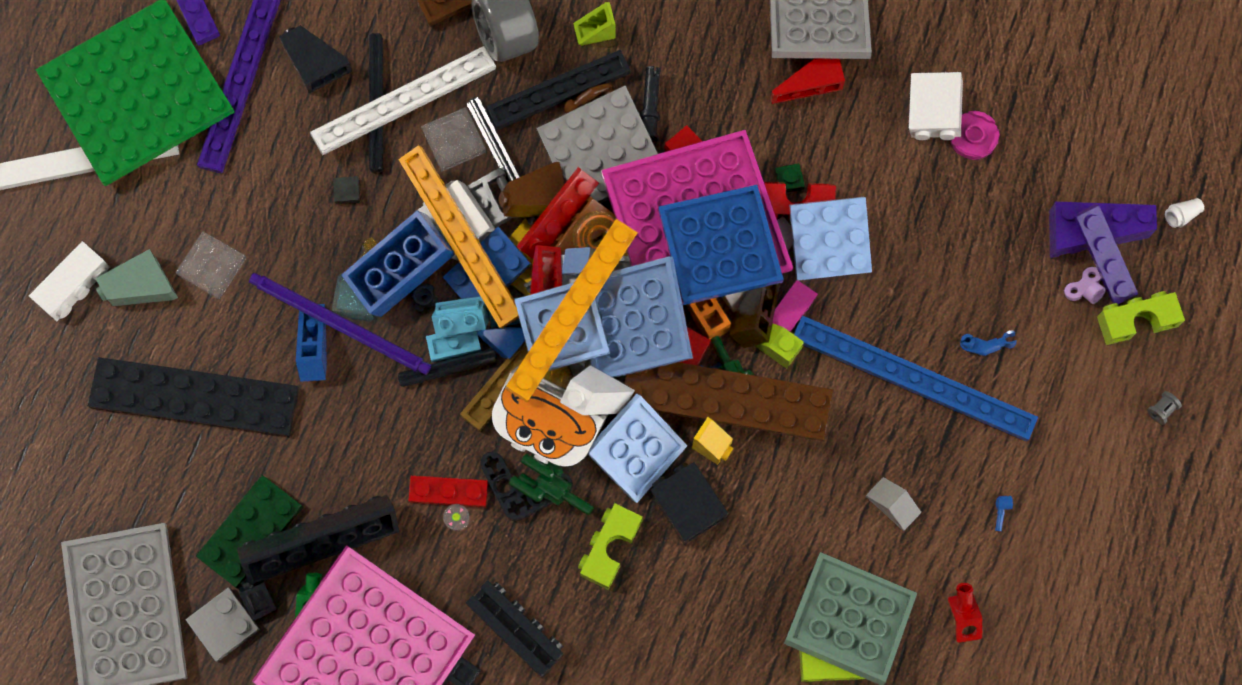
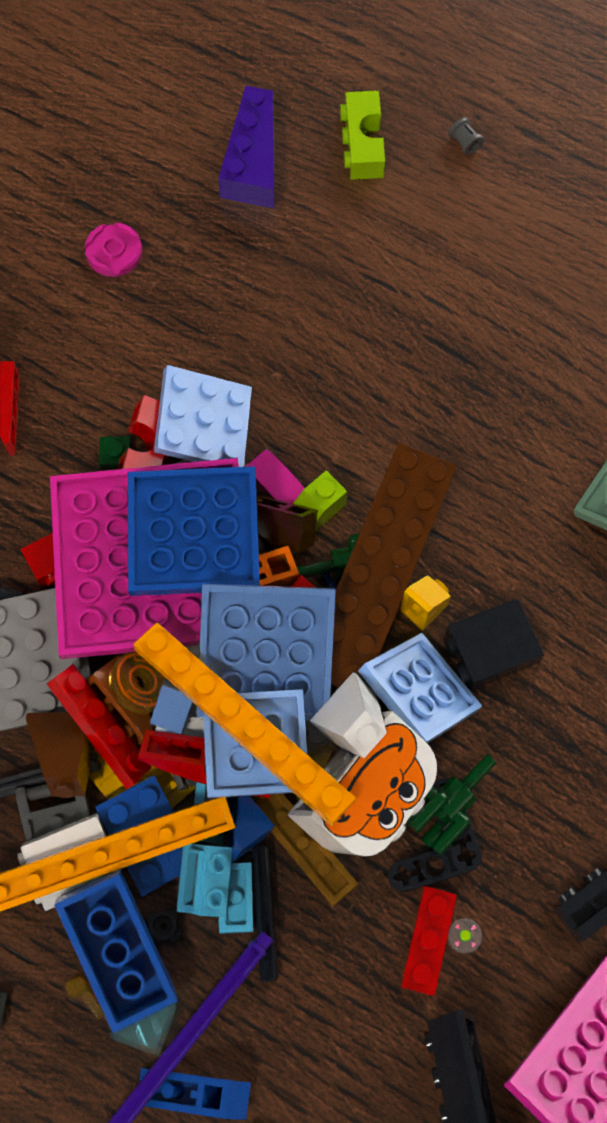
camera: 80 degrees left, 5 degrees down
(619, 524) = (552, 767): lime arch -> none
(894, 503) = (524, 422): light grey slope -> none
(916, 379) = (385, 371): blue plate -> none
(935, 105) = (70, 275): white brick -> none
(984, 347) = (364, 292): blue arm -> none
(1002, 503) = (544, 313): blue hand -> none
(1086, 287) = (316, 178): lavender piece -> none
(1105, 254) = (288, 144): plate -> none
(1183, 212) = (255, 70): white cone -> none

